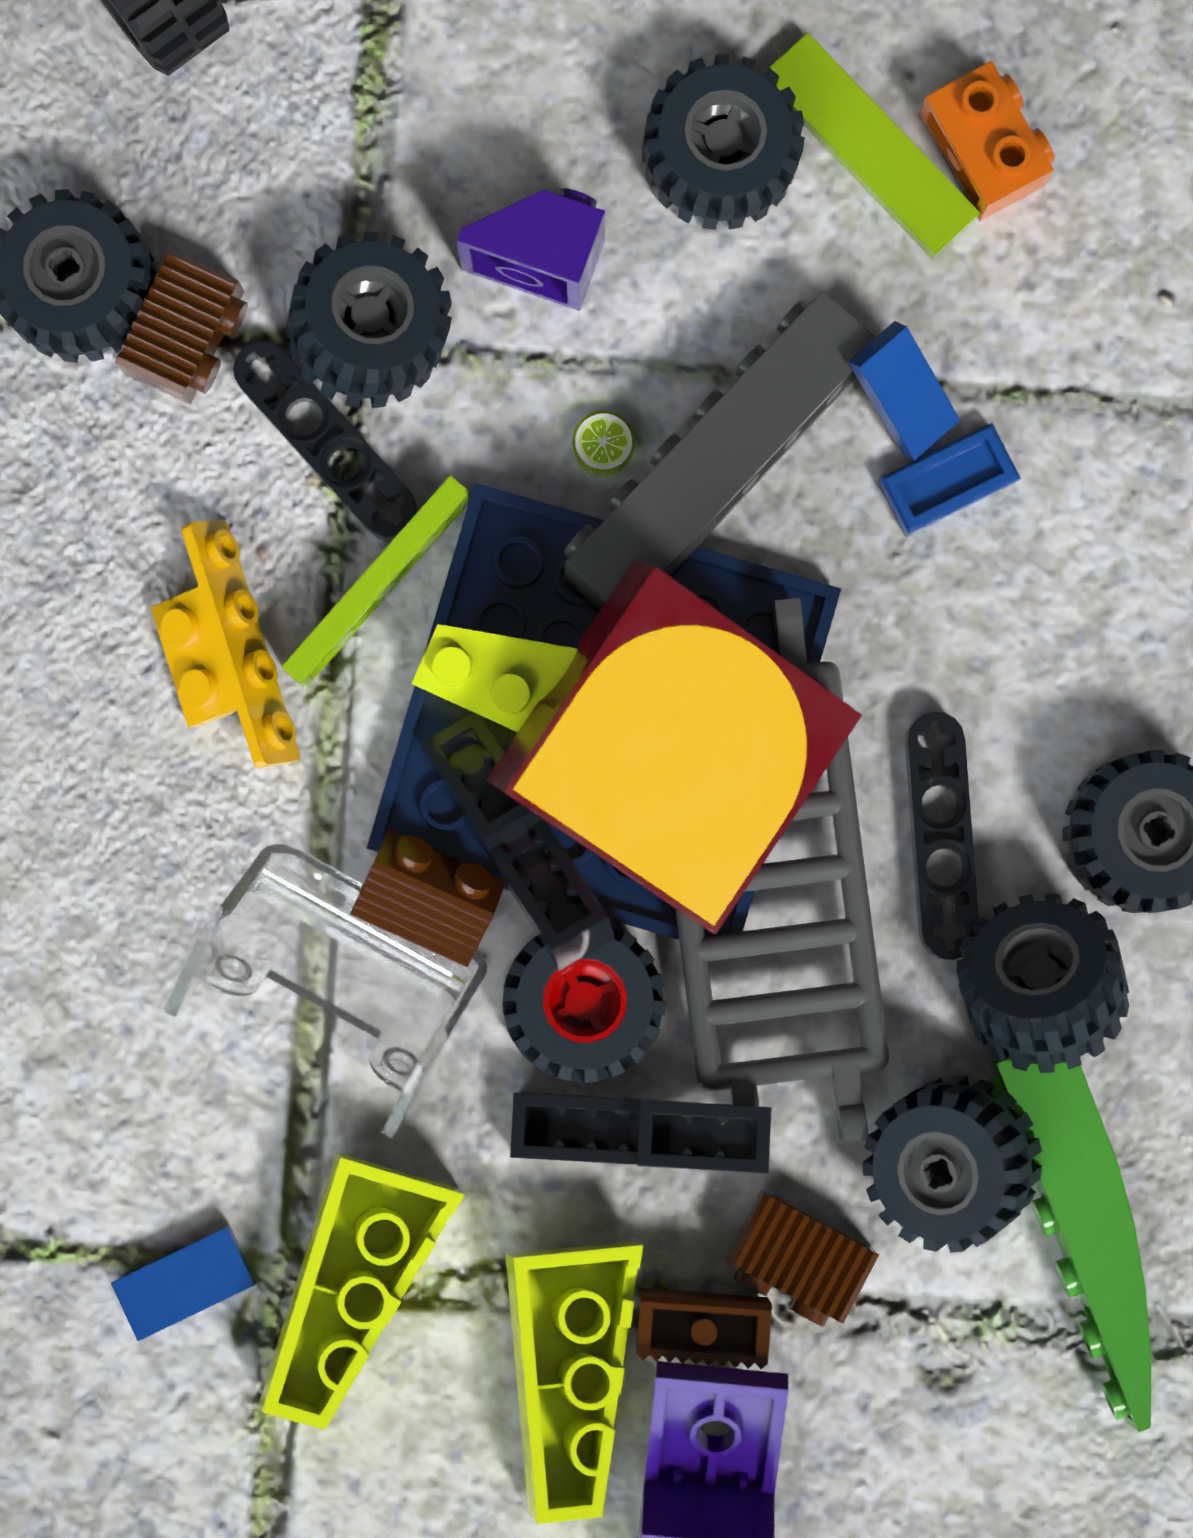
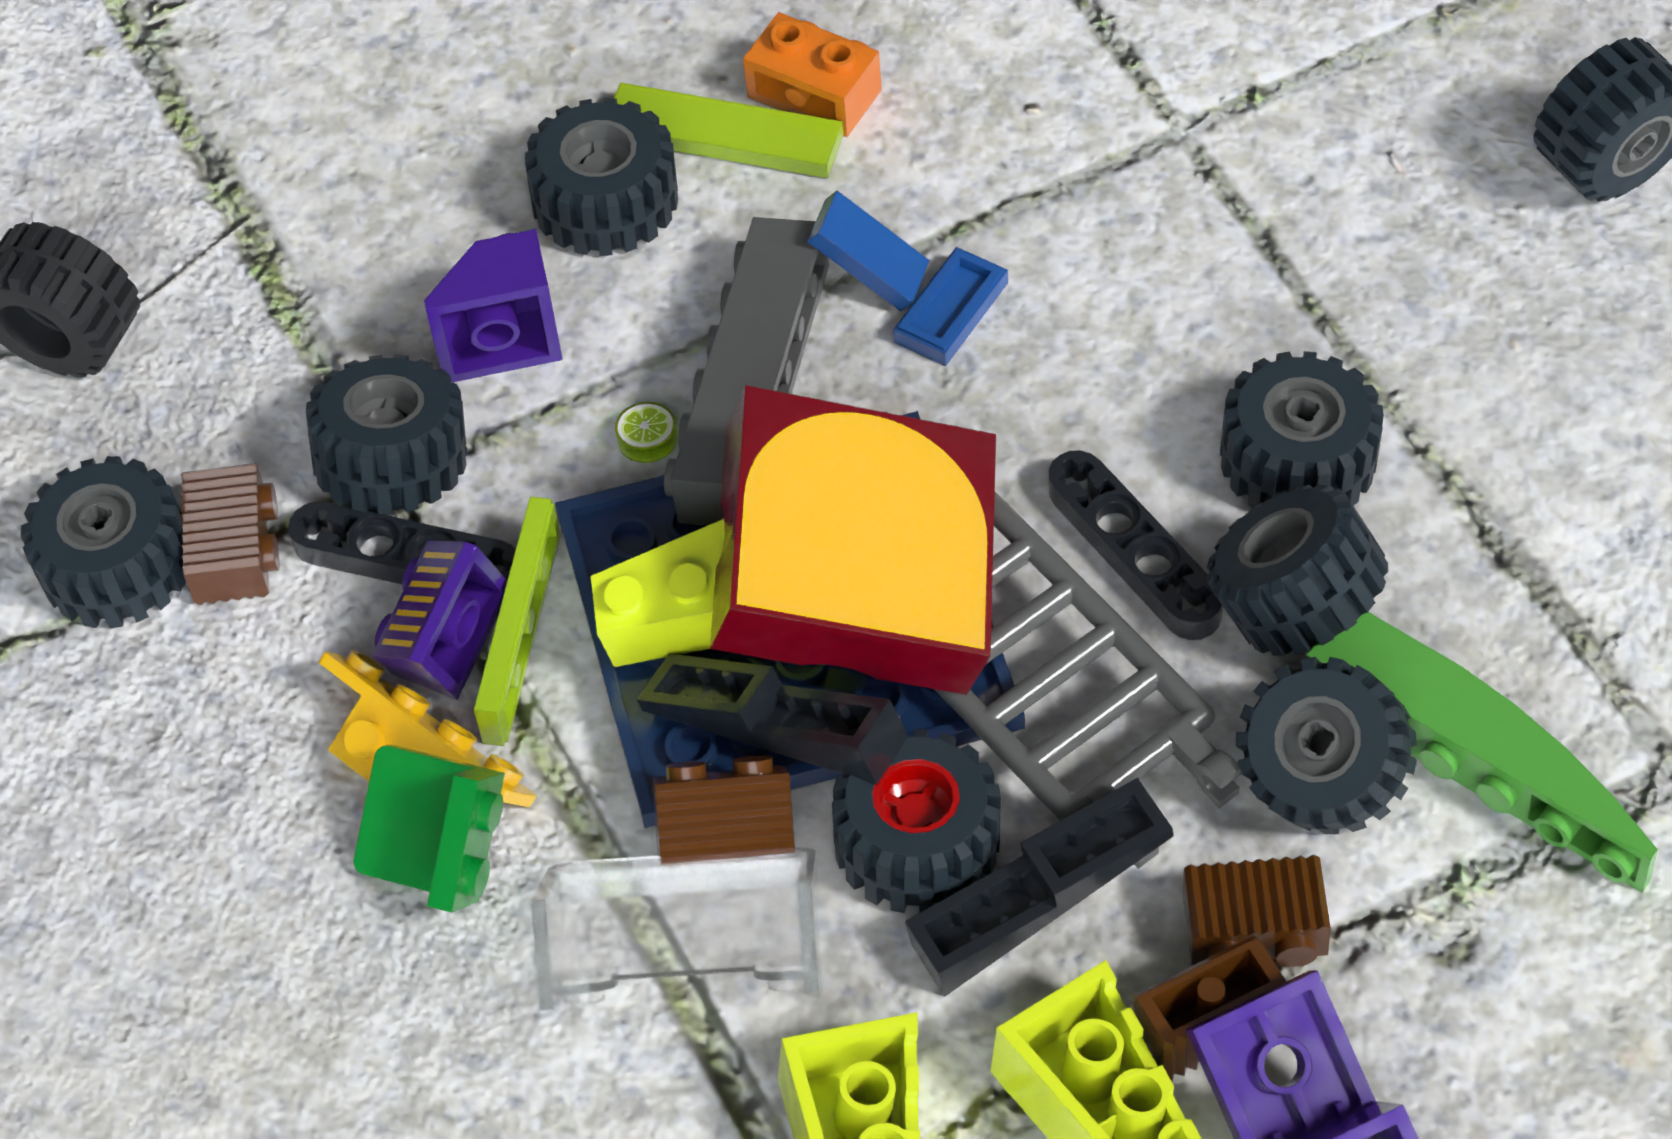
camera: 25 degrees left, 30 degrees down
(188, 753) = (429, 825): none -> green bracket
(303, 551) = (441, 617): none -> dark purple slope

